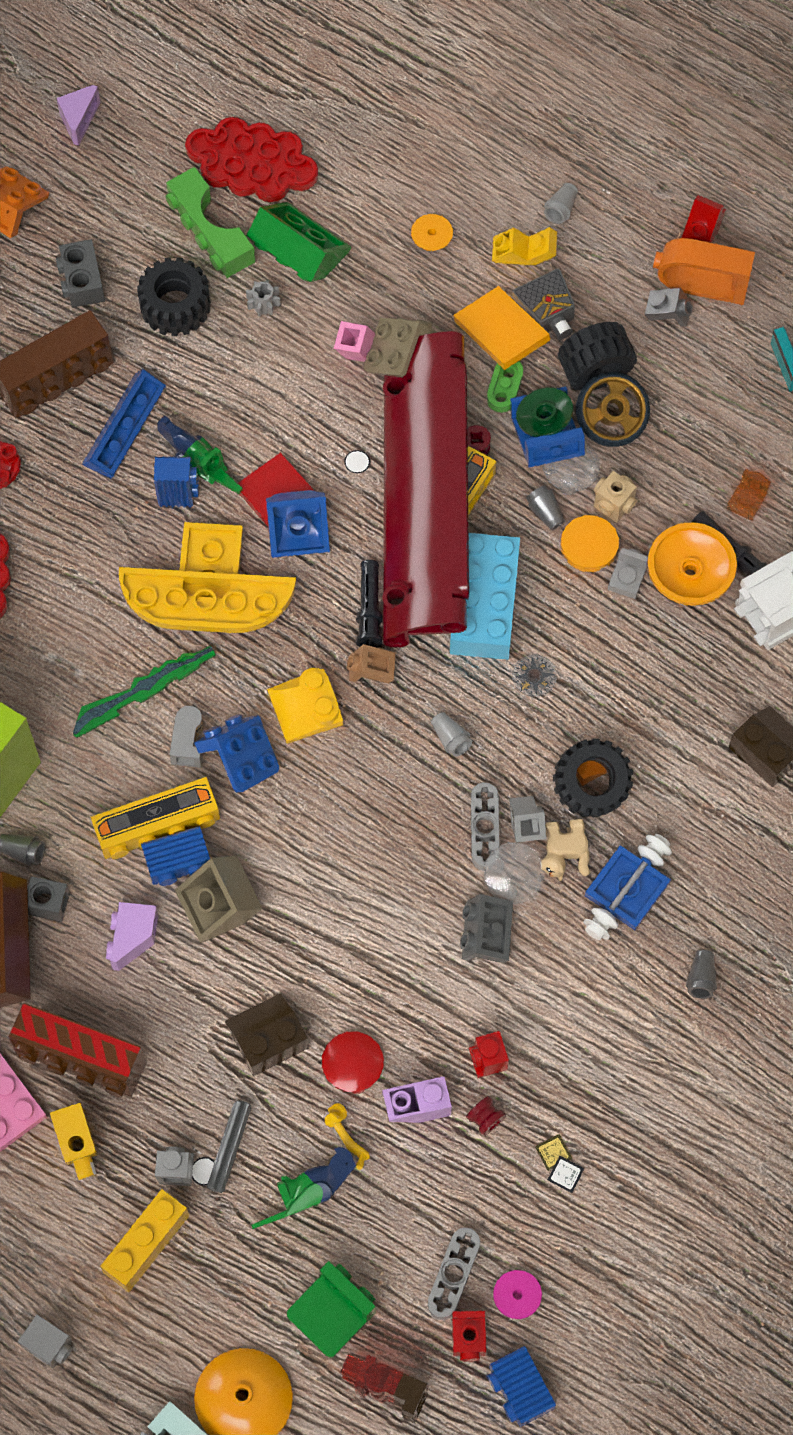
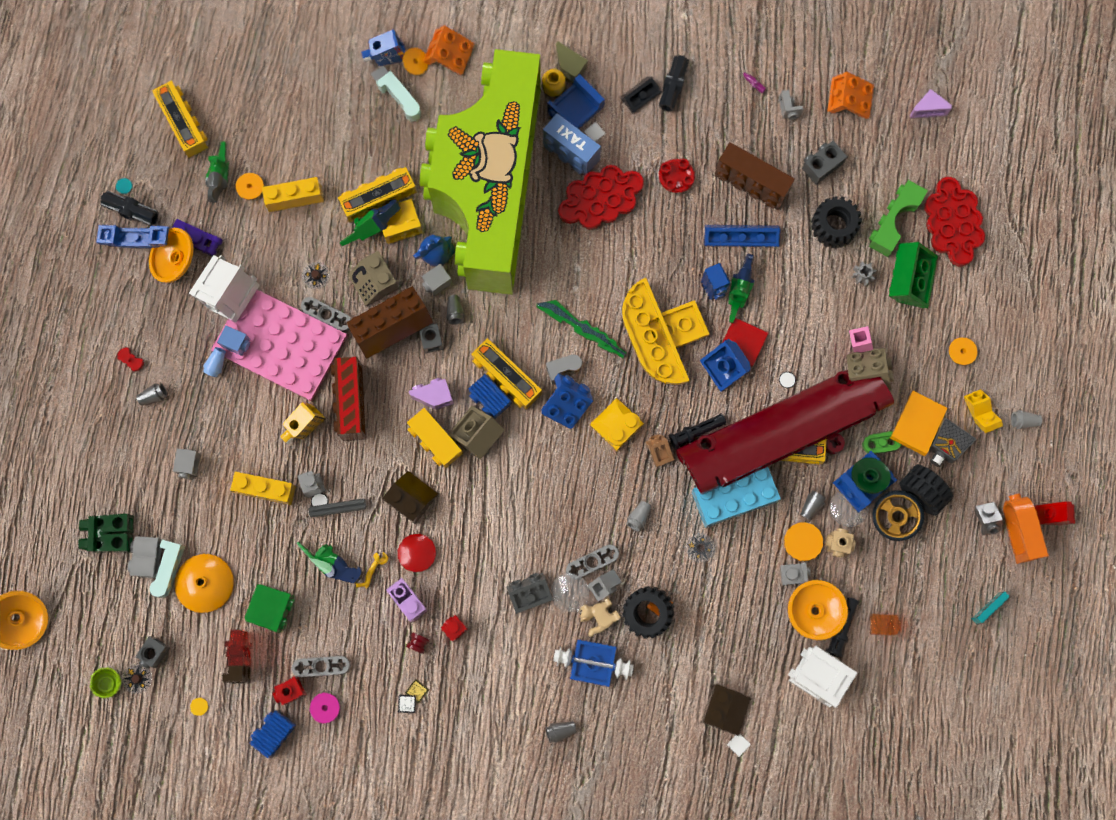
camera: 65 degrees right, 10 degrees up
(197, 960) = (434, 438): none -> yellow brick

